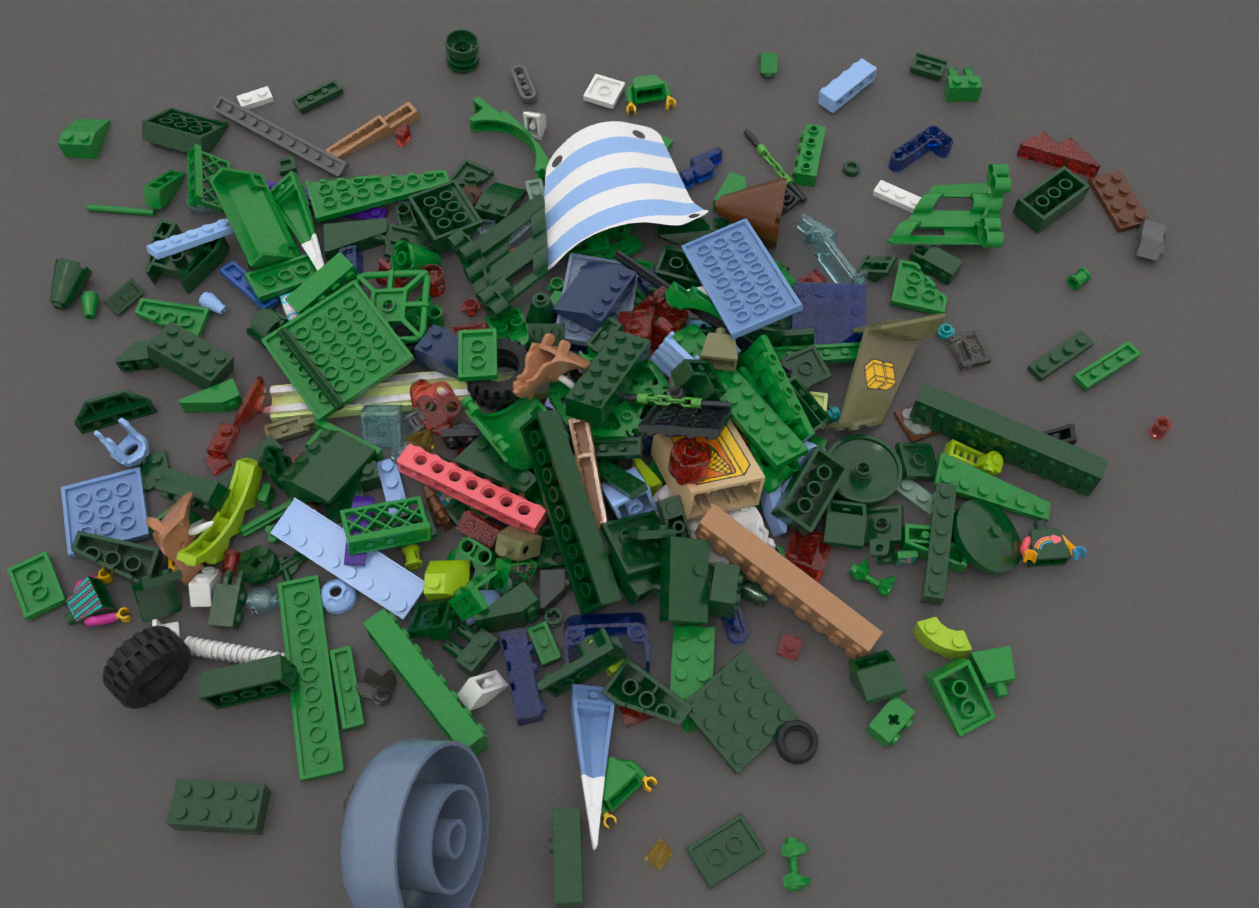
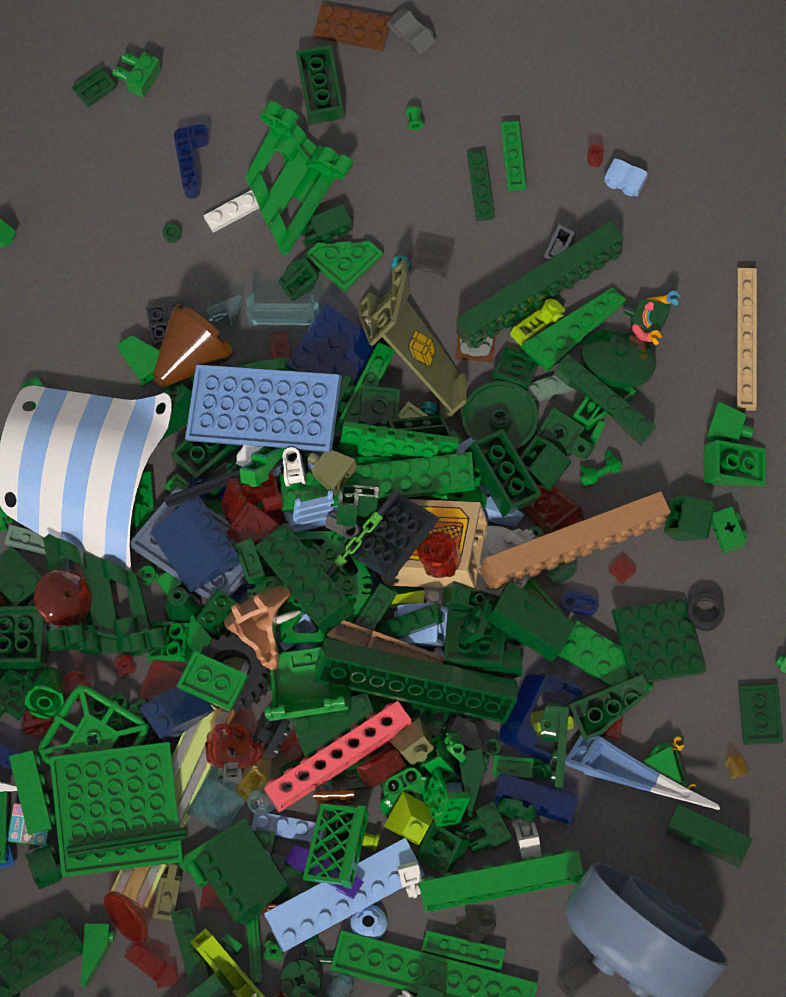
camera: 55 degrees left, 10 degrees up
(274, 463) = (213, 919): dark green plate -> none
(392, 601) = (410, 877): none -> white plate
(492, 241) = (54, 605): none -> clear red dish
(499, 663) = (514, 808): none -> dark green plate
(529, 573) = (455, 745): none -> green piece
(553, 666) = (541, 770): none -> dark green plate
(701, 167) = (90, 369): clear blue plate -> none
(701, 323) = (293, 471): none -> white piece
(724, 590) = (554, 592): dark green brick -> none
(762, 150) = (151, 298): piece -> none
(809, 155) = (136, 261): green brick -> none
(847, 85) = (74, 177): light blue brick -> none
(941, 640) = (684, 449): lime brick -> none
(1067, 153) = (276, 39): clear red slope -> none
(1089, 644) = (747, 339): none -> tan plate
(1160, 462) = (625, 177): none -> light blue brick

